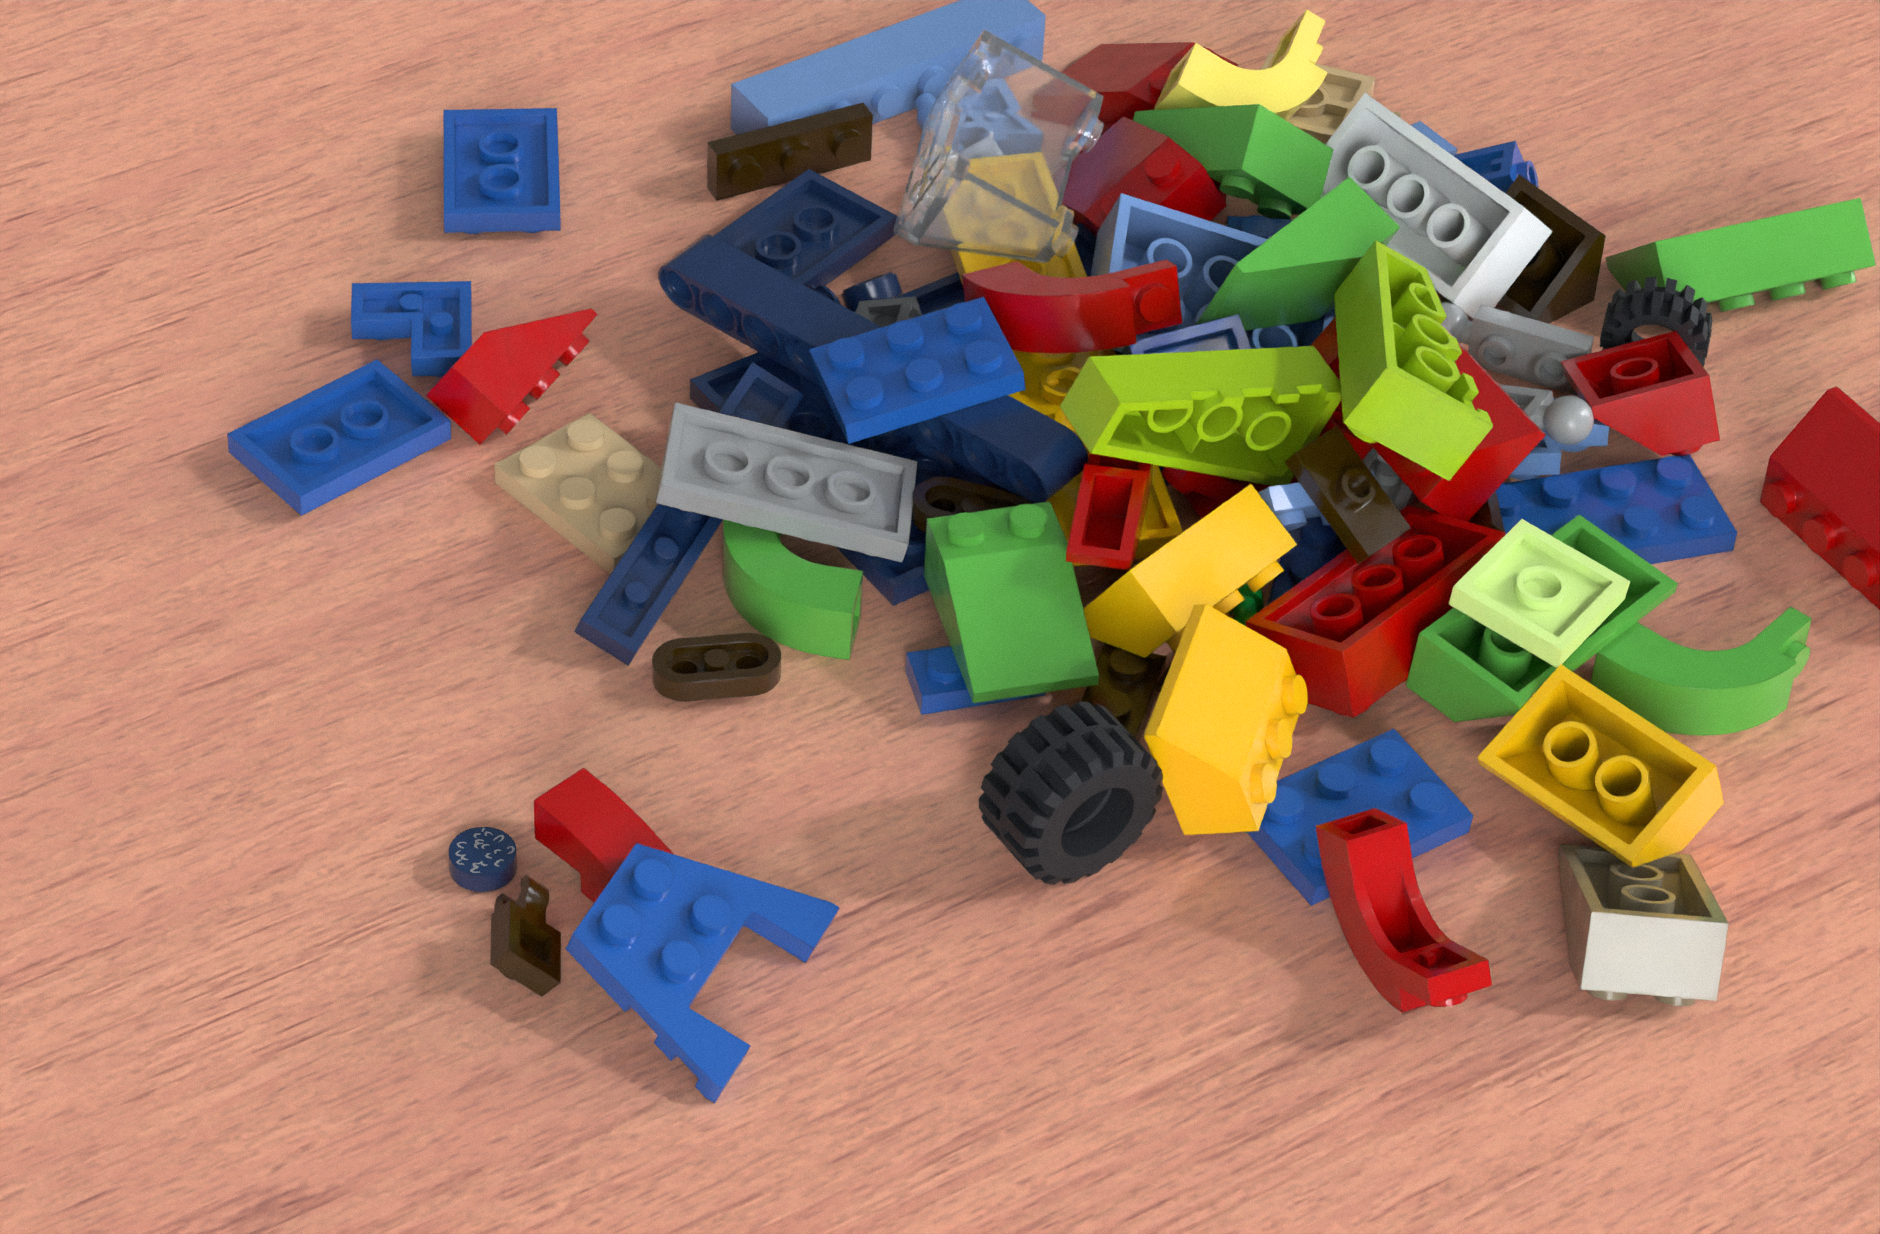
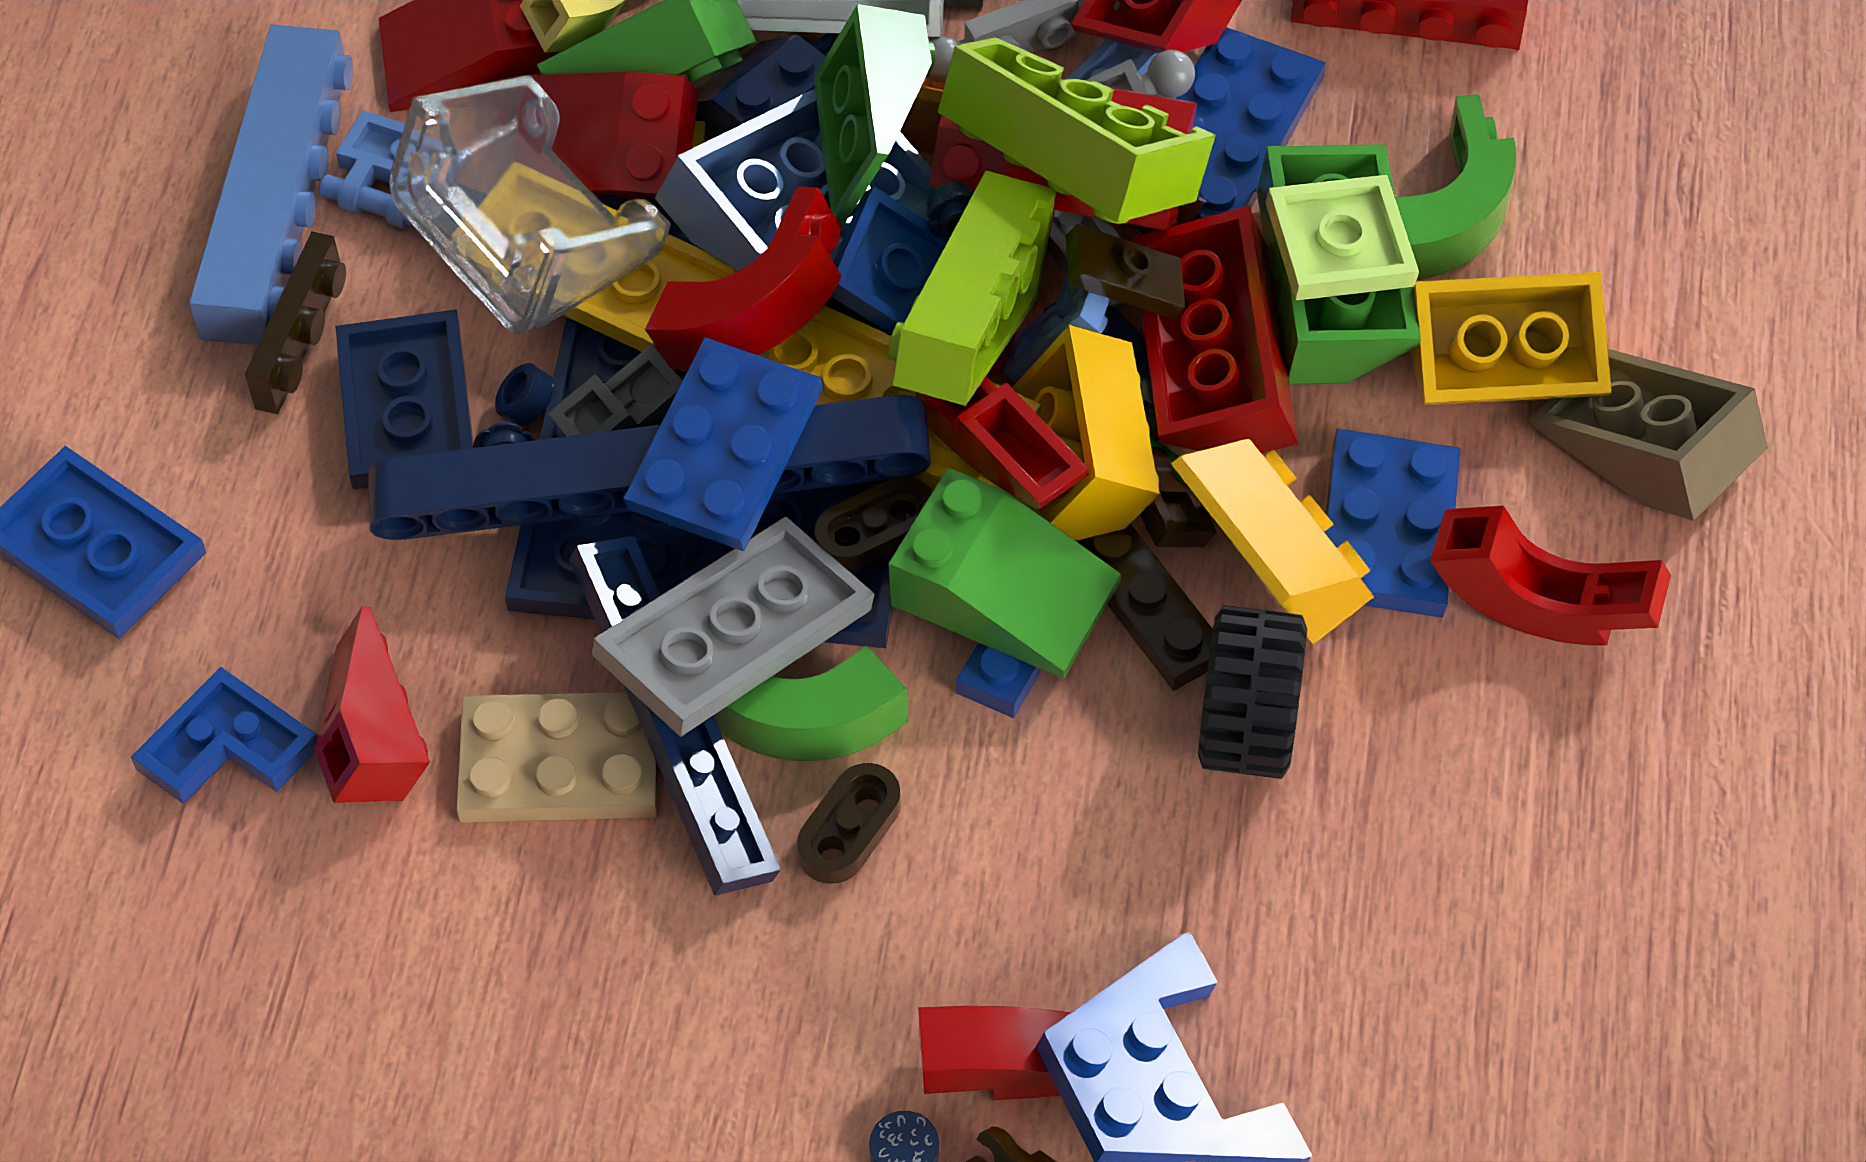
camera: 45 degrees left, 15 degrees up
(339, 437) = (306, 902): blue plate -> none

